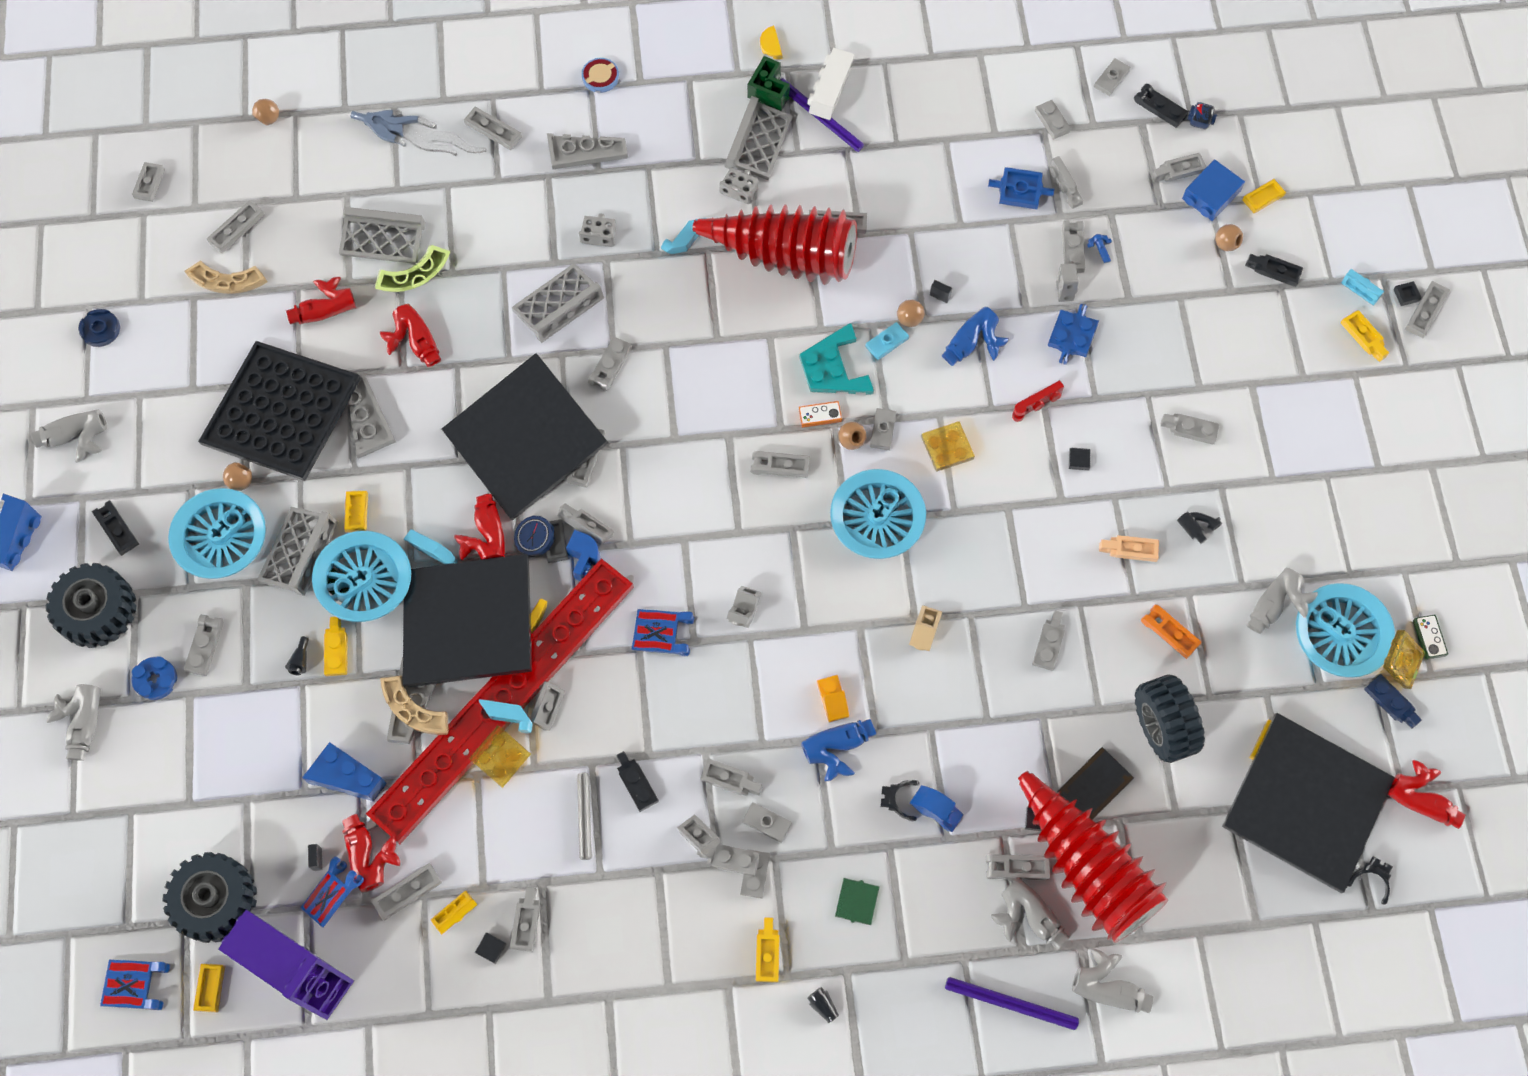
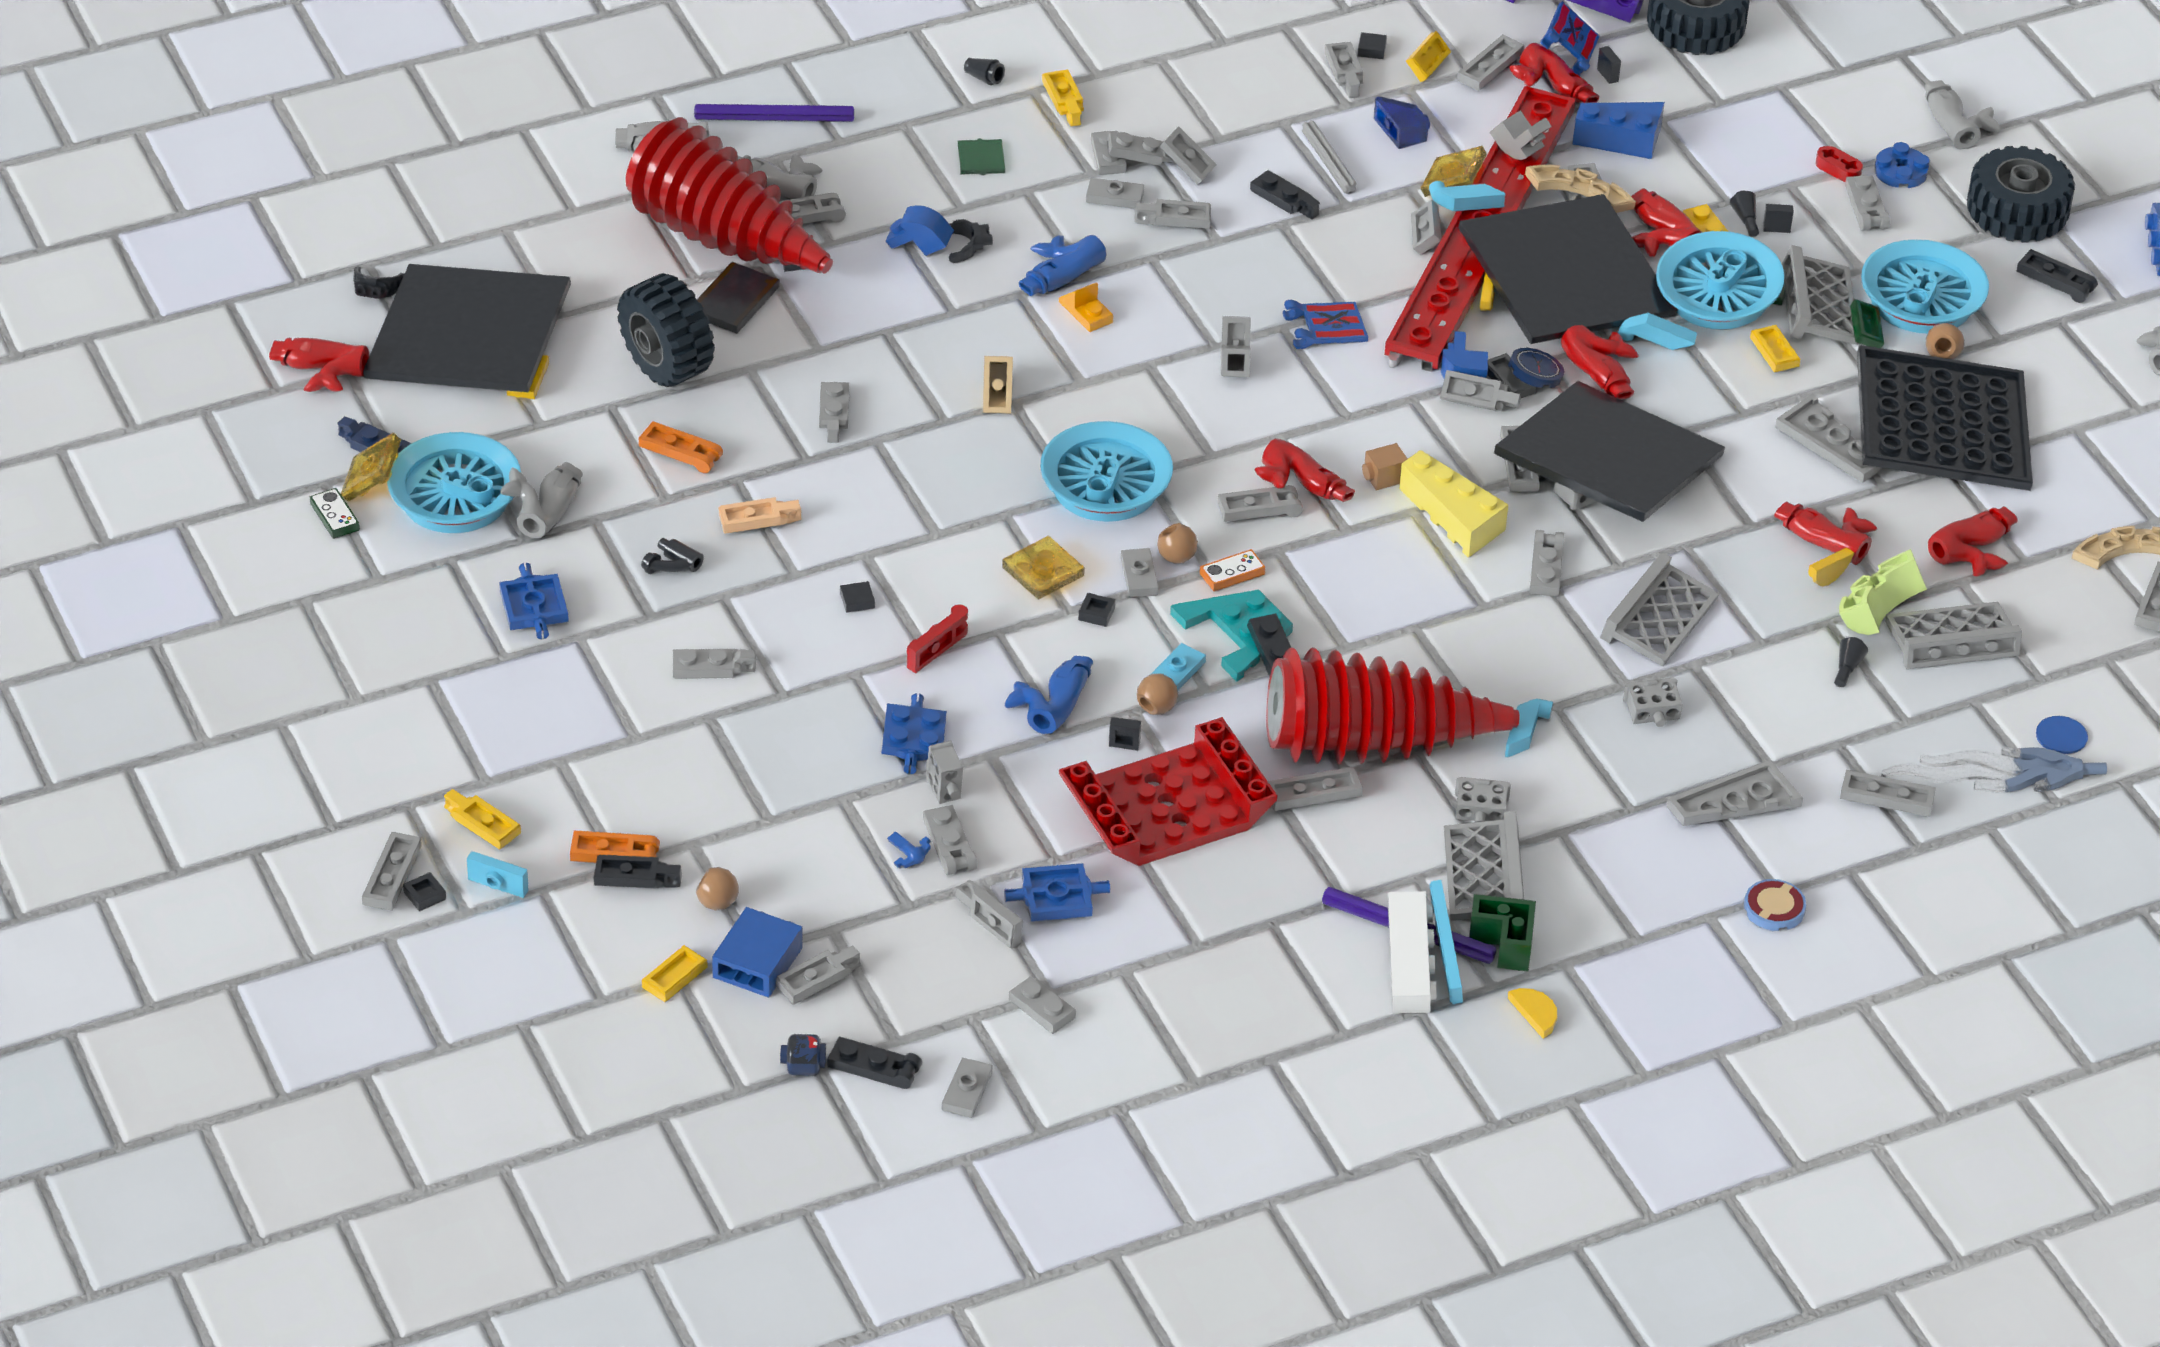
camera: 160 degrees right, 25 degrees down
(203, 691) = (1838, 163): none -> red beam
(279, 516) = (1866, 324): none -> dark green tile
(281, 640) = (1778, 218): none -> black tile
(361, 150) = (2061, 734): none -> blue piece
(363, 666) = (1665, 217): none -> red piece
(432, 301) = (1830, 568): none -> yellow tile
(435, 761) = (1518, 137): none -> light grey brick
(456, 233) = (1851, 653): none -> black cone
(511, 833) = (1401, 121): none -> clear blue slope
(649, 419) = (1454, 502): none -> light yellow wedge
(682, 471) = (1383, 466): none -> medium nougat brick
(734, 477) = (1282, 456): none -> red piece
(808, 82) = (1446, 942): none -> medium azure tile
(820, 330) = (1268, 638): none -> black plate
(922, 405) = (1096, 609): none -> black tile
(960, 232) = (1209, 783): none -> red slope
(1284, 290) = (589, 845): none -> orange plate
(1302, 509) = (533, 601): none -> blue plate

